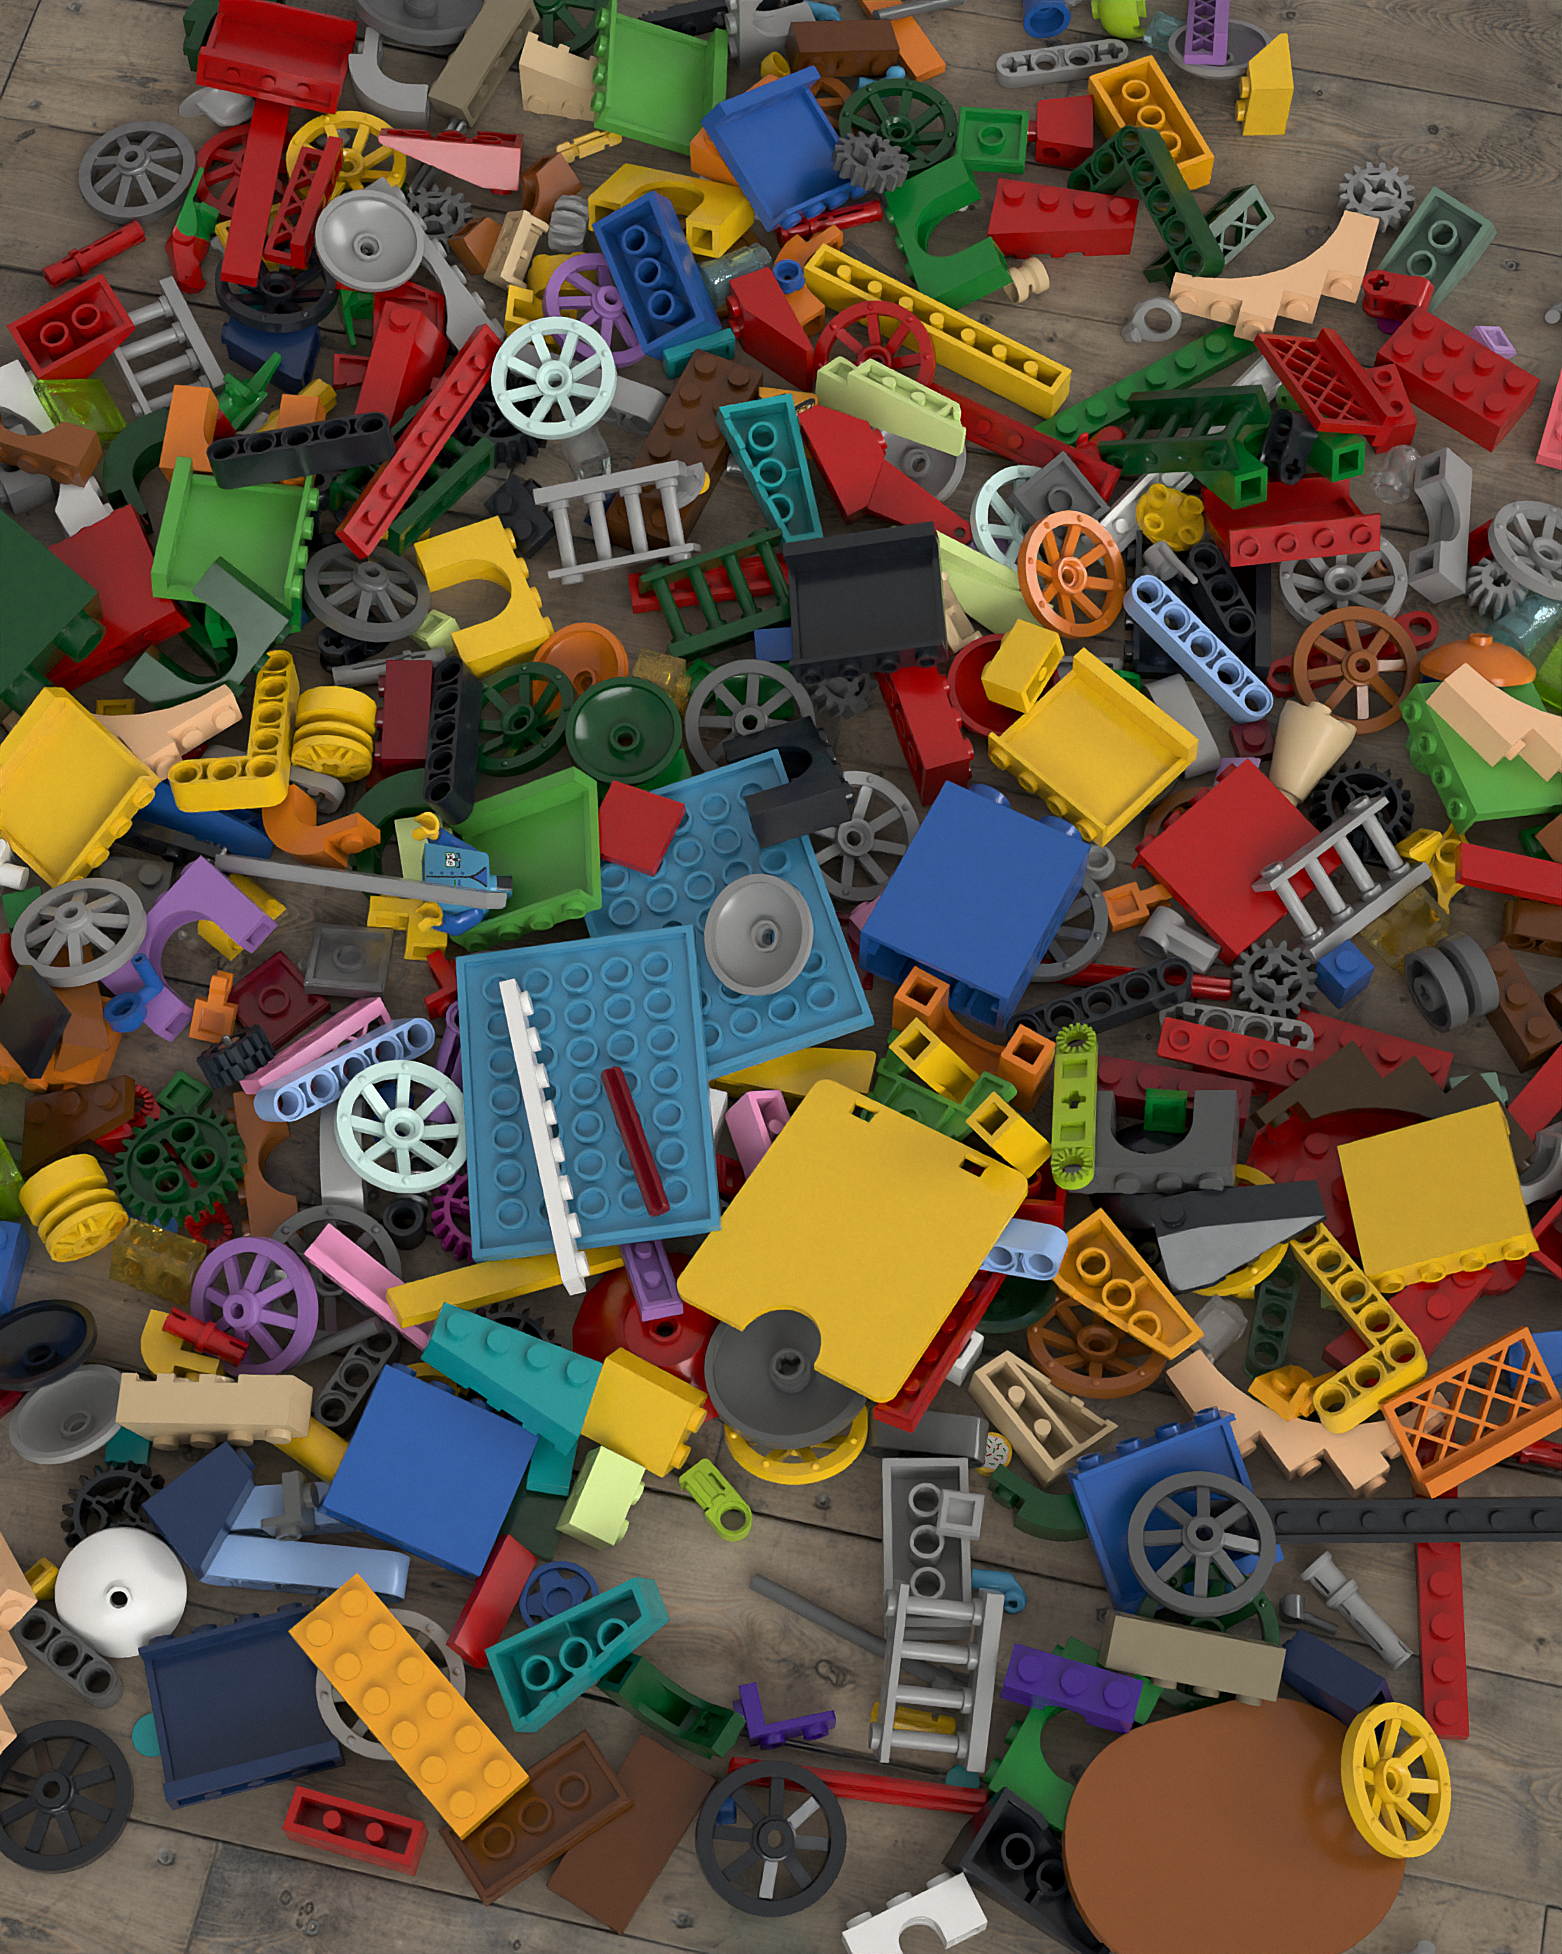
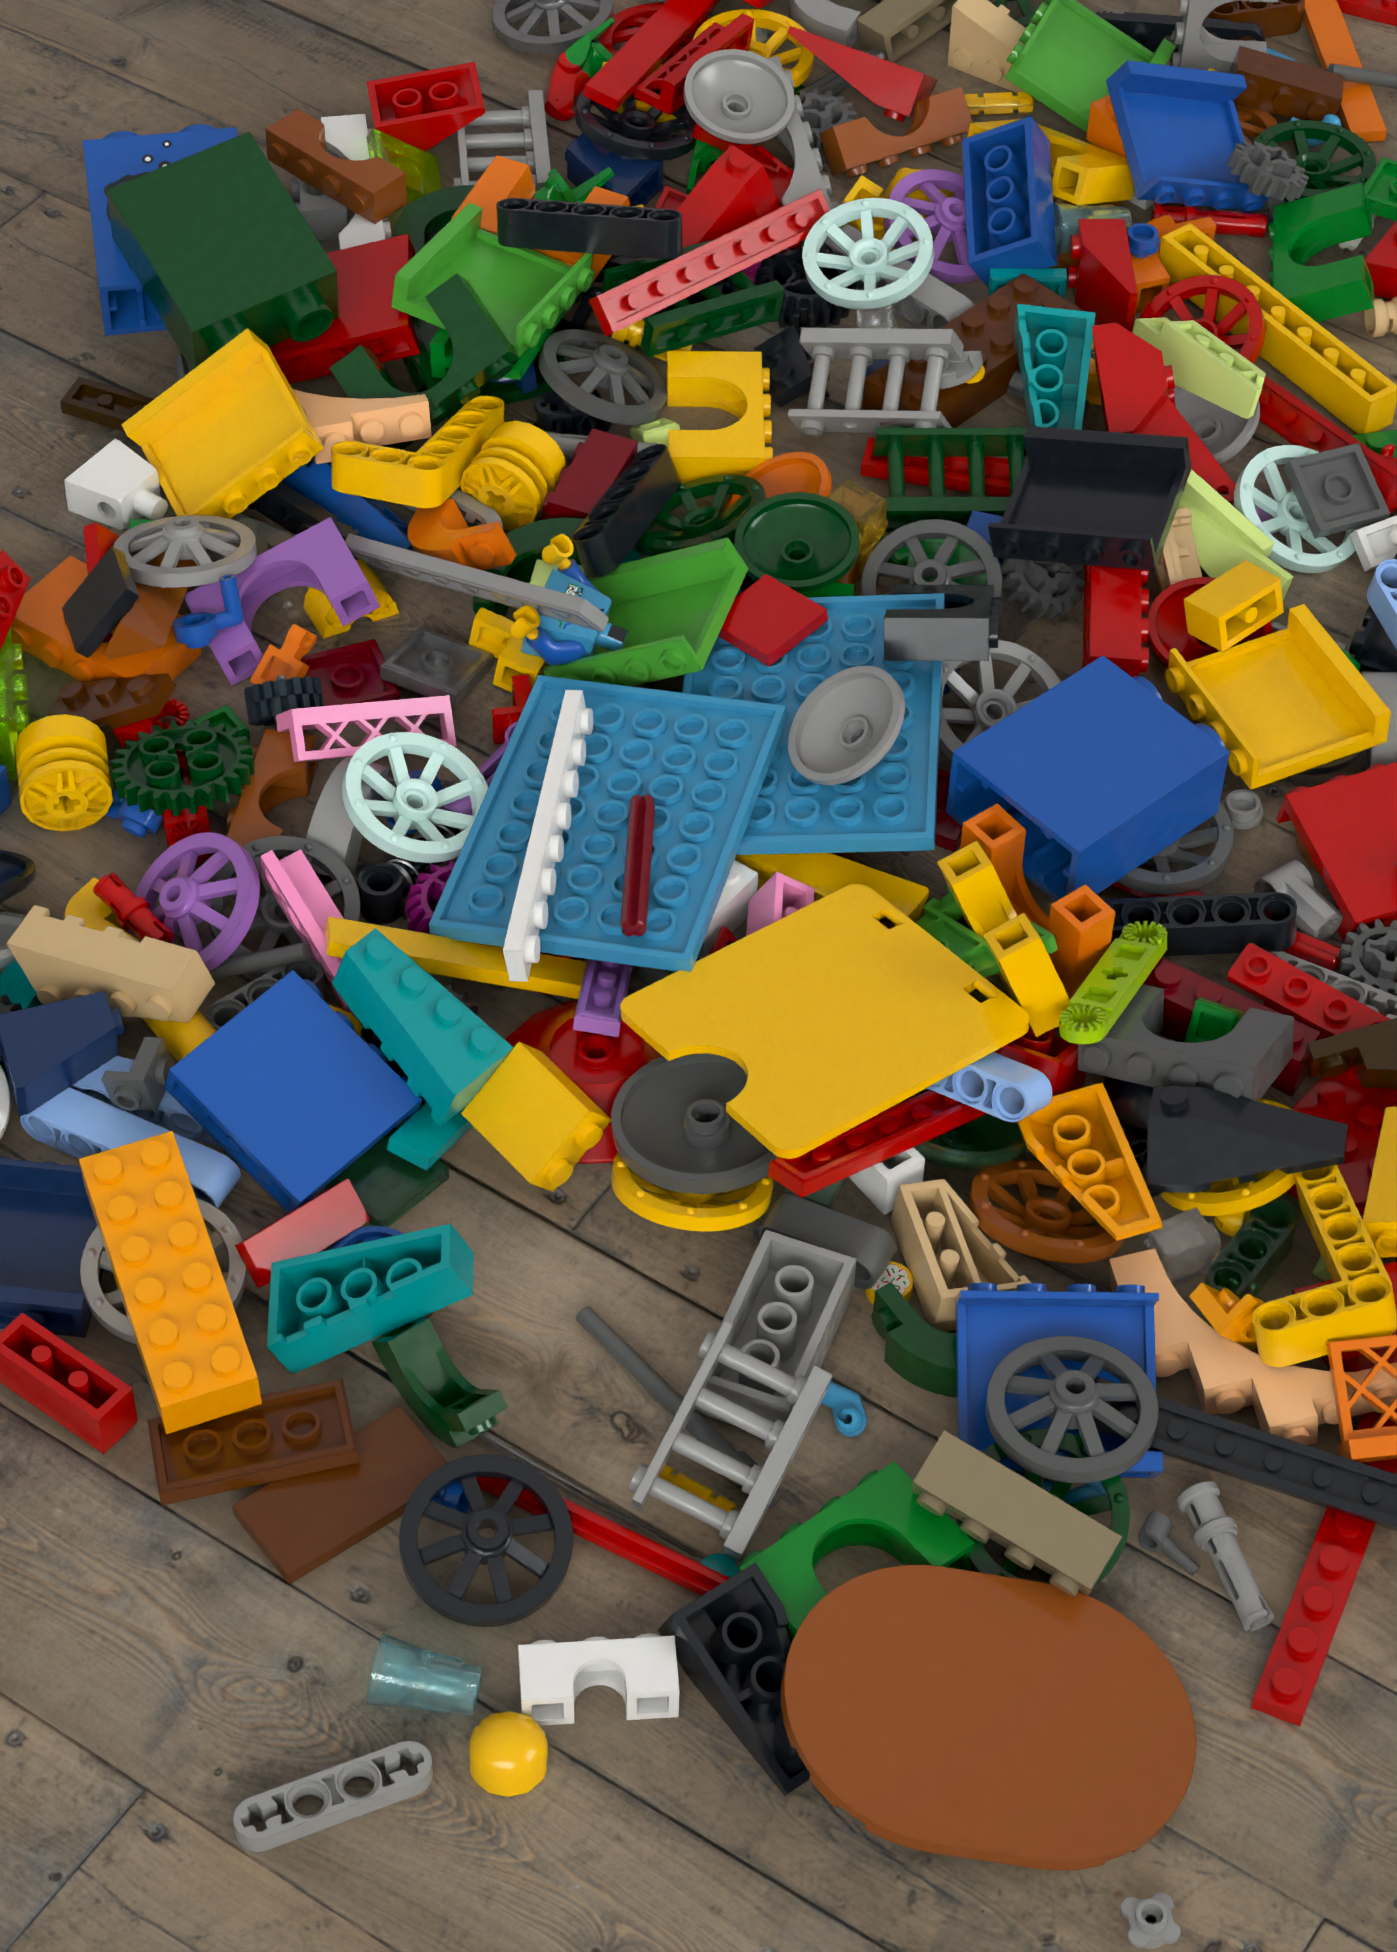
camera: 20 degrees right, 15 degrees down
(82, 260) = (489, 61): red pin -> none
(156, 1261) = (117, 840): clear yellow brick -> none
(329, 1073) = (361, 728): light blue beam -> none
(514, 249) = (884, 152): tan hinge -> none
(569, 225) = (944, 148): light grey gear -> none
(602, 1499) = (460, 1182): yellowish green brick -> none
(716, 1497) = (579, 1228): lime piece -> none
(774, 1734) = (548, 1450): dark purple bracket -> none
(960, 1514) = (823, 1302): light grey tile -> none
(1051, 1680) = (902, 1515): dark purple arch -> none
(1067, 575) = (1319, 555): orange wheel -> none
(1131, 907) = (1260, 853): orange plate -> none
(1332, 1680) = (1176, 1614): dark blue slope -> none
(1388, 1783) = (1188, 1713): yellow wheel -> none

